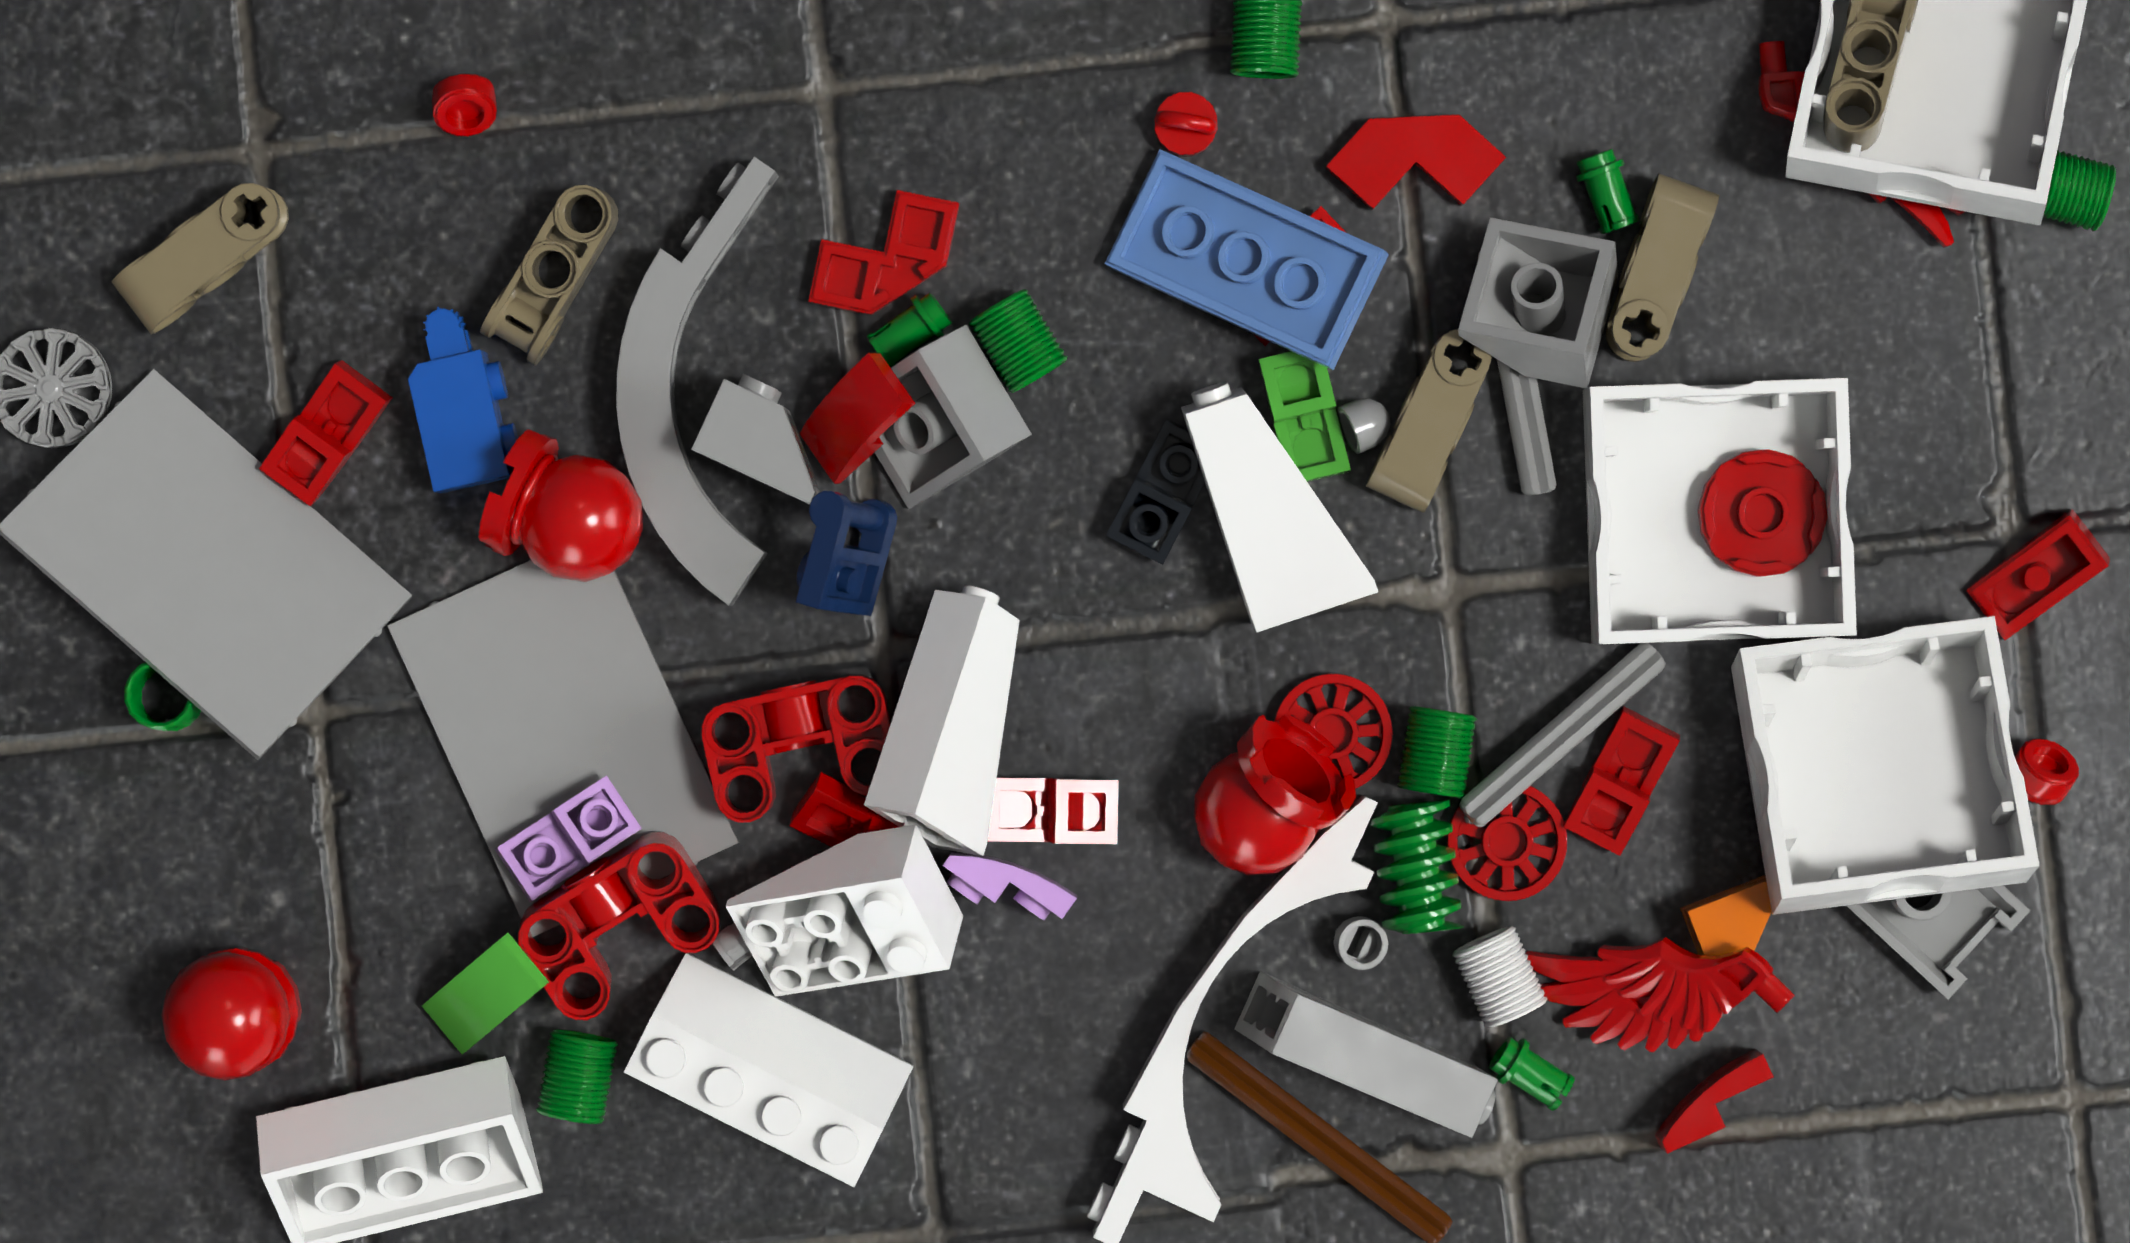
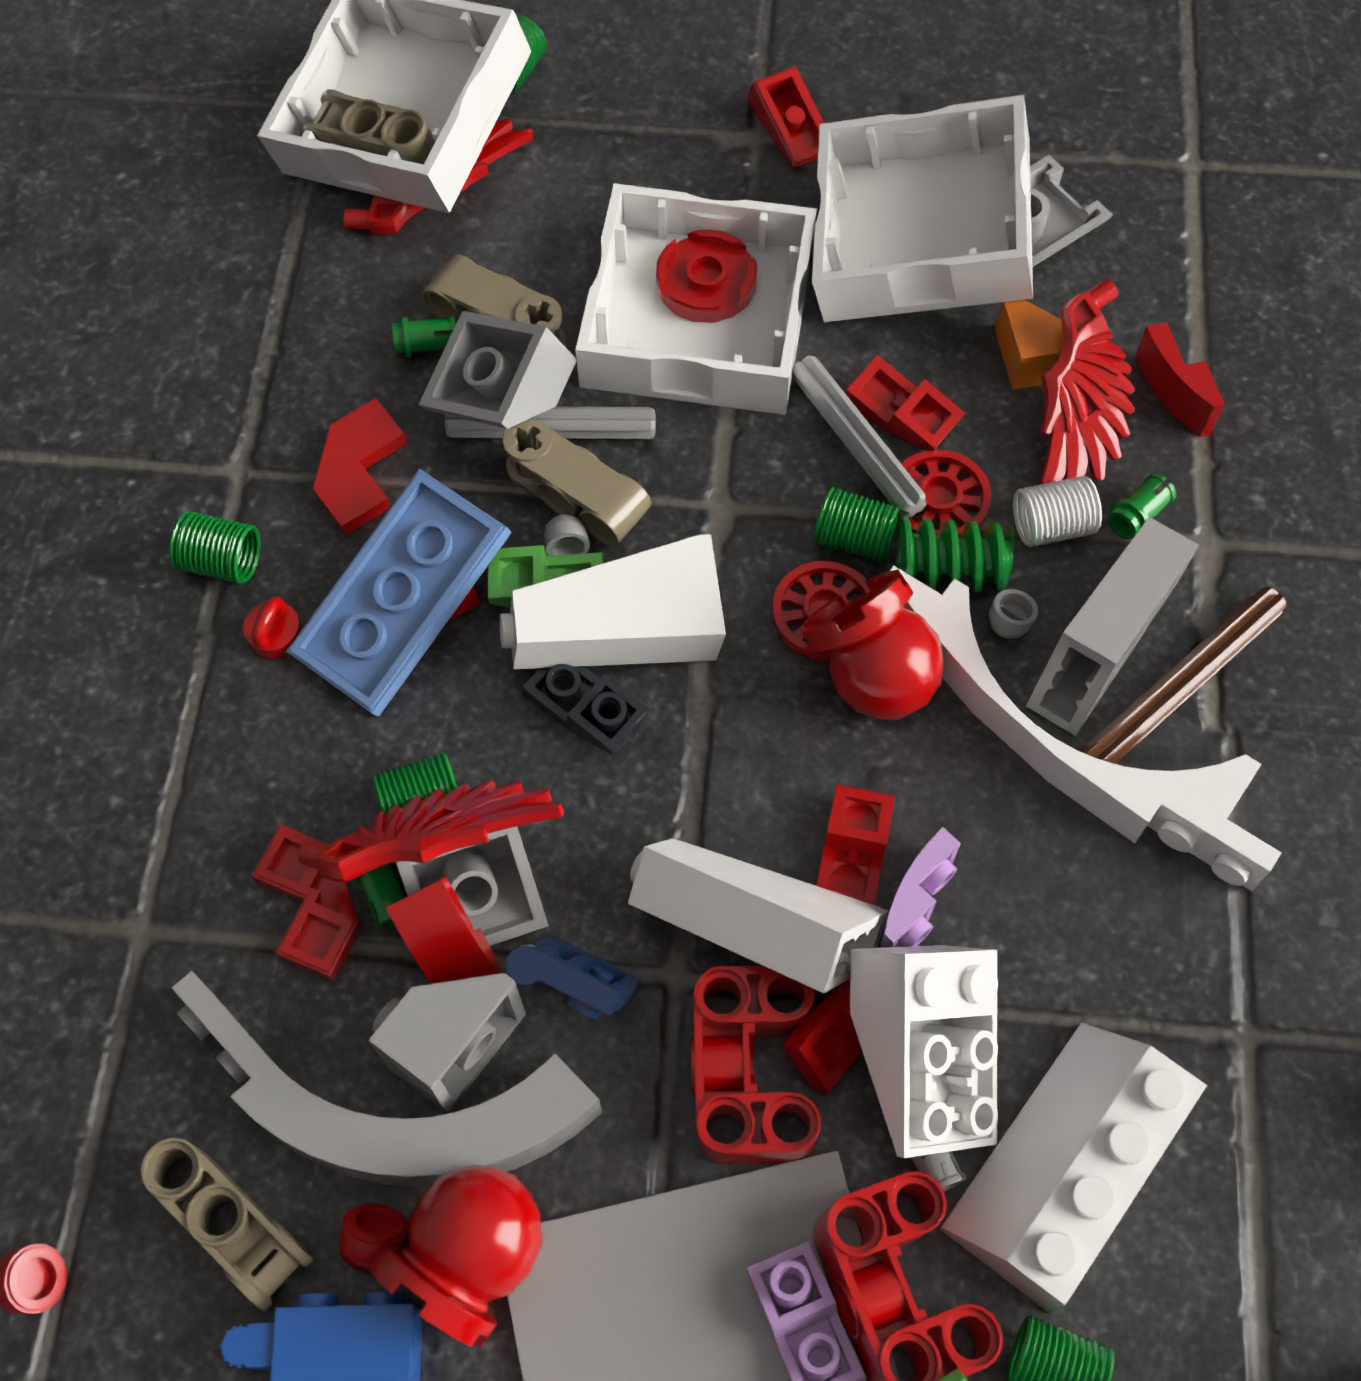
camera: 75 degrees left, 25 degrees down
(568, 415) = (367, 1231): none -> red tile
(960, 379) = (430, 828): none -> red animal

